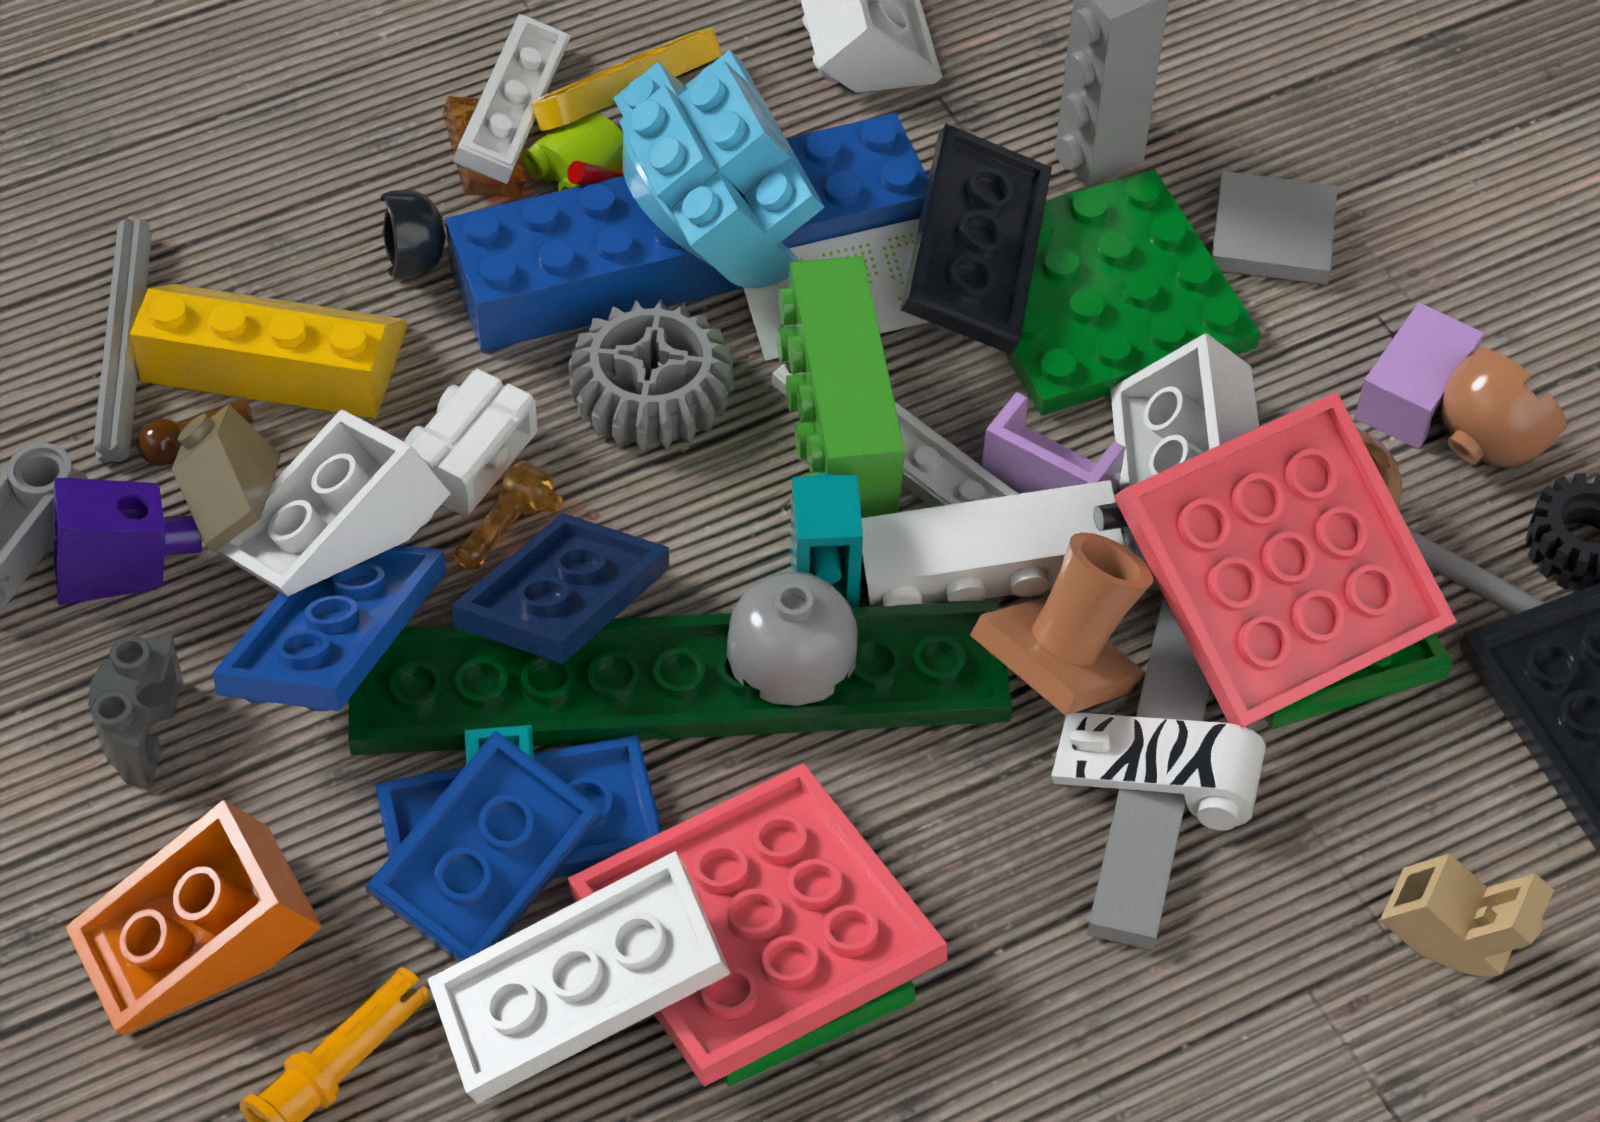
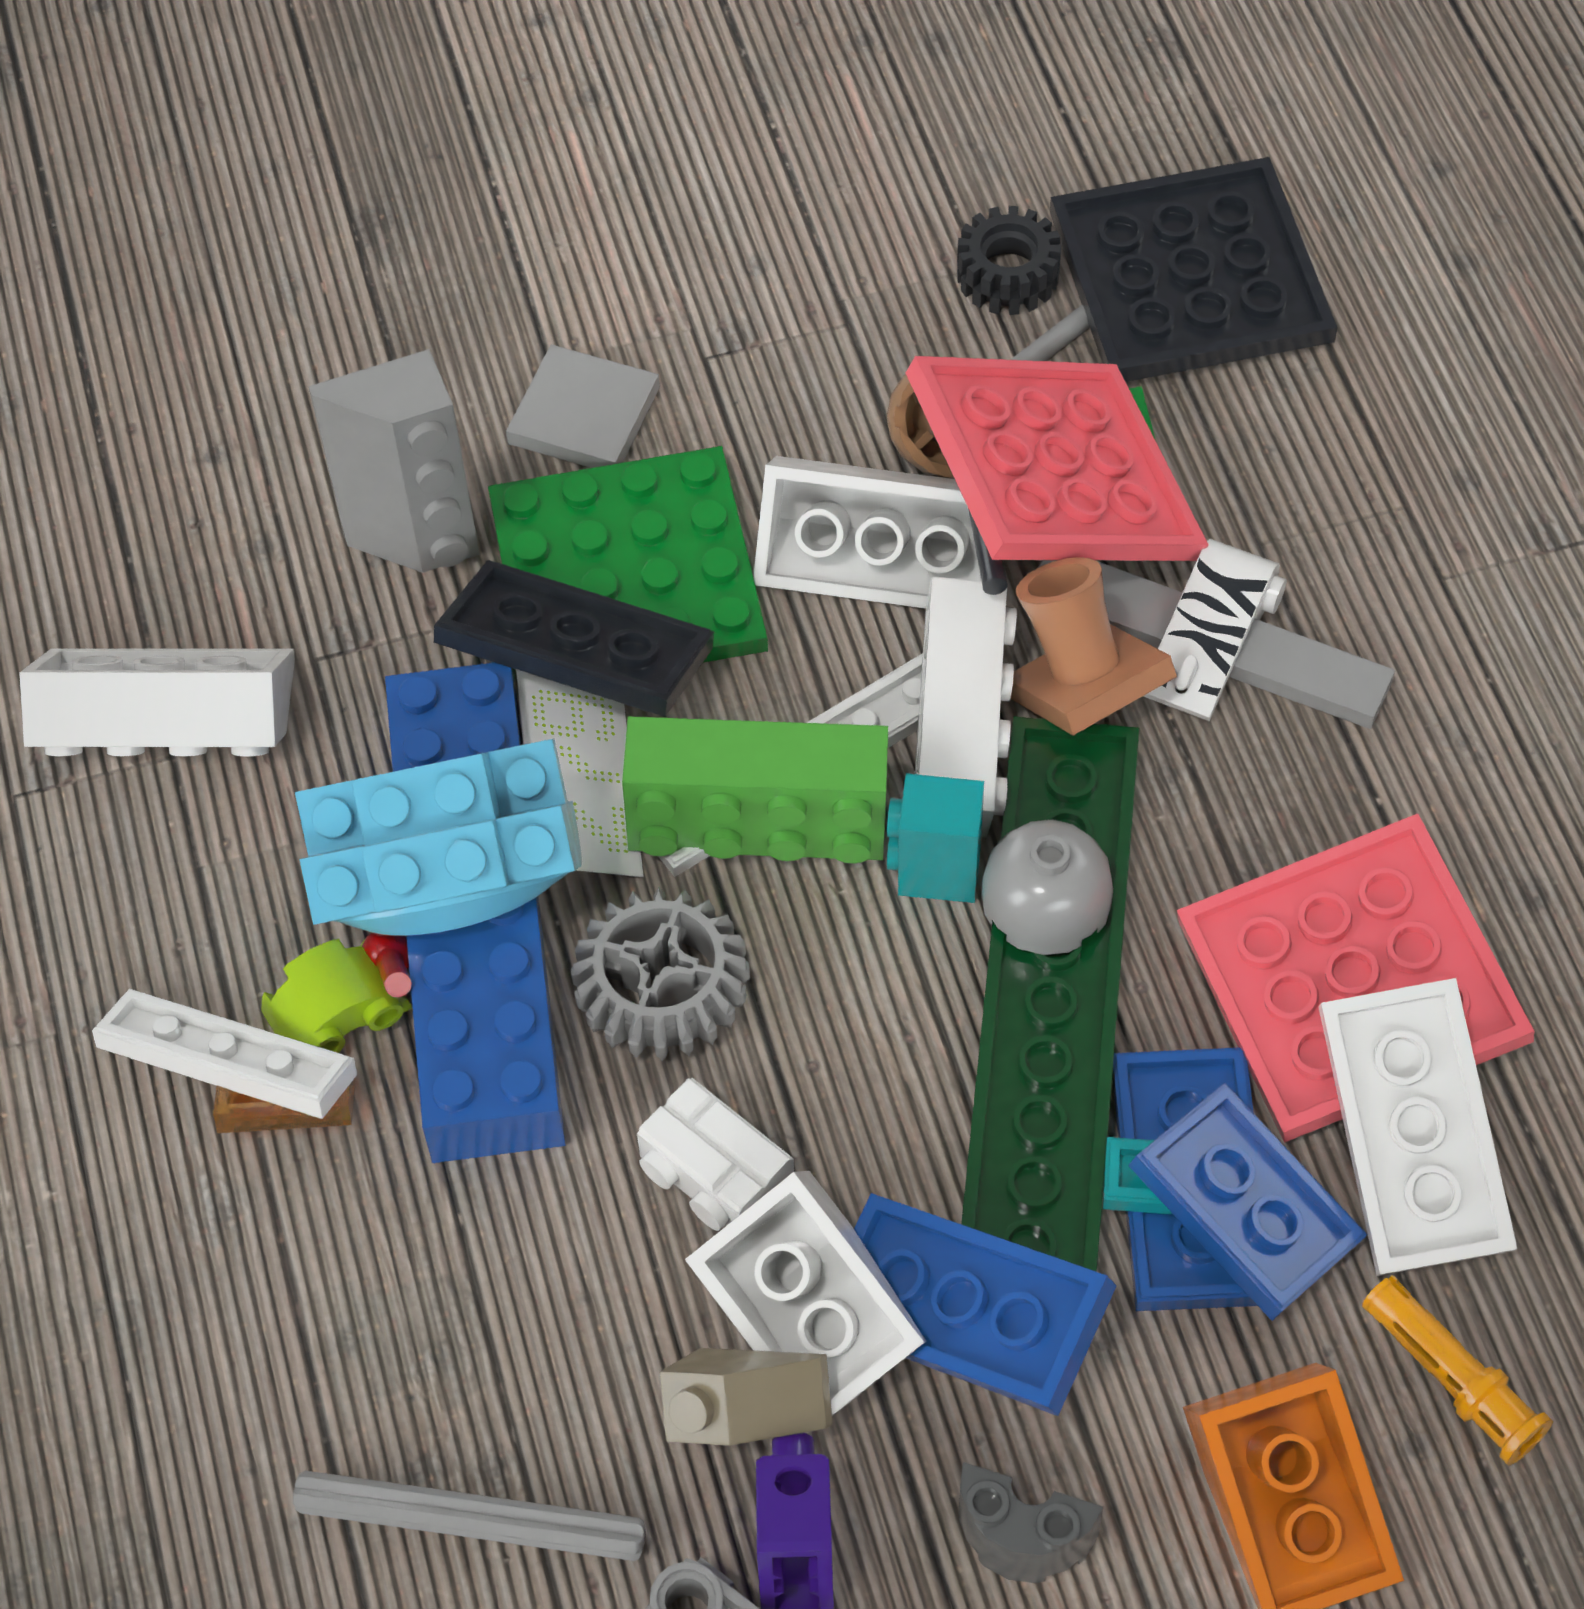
camera: 75 degrees left, 5 degrees up
(159, 441) = (627, 1484): reddish brown bar -> none
(266, 349) = (521, 1351): yellow slope -> none
(412, 233) = (412, 1180): black hair -> none
(524, 491) = (788, 1118): clear orange piece -> none
(561, 588) = (944, 1085): dark blue plate -> none
(600, 88) = (224, 941): yellow beam -> none
(1036, 463) = (857, 645): lavender panel -> none
(1413, 374) = (807, 334): lavender panel -> none
(1461, 921) = (1414, 435): tan brick -> none
(1495, 414) = (875, 283): nougat cylinder -> none

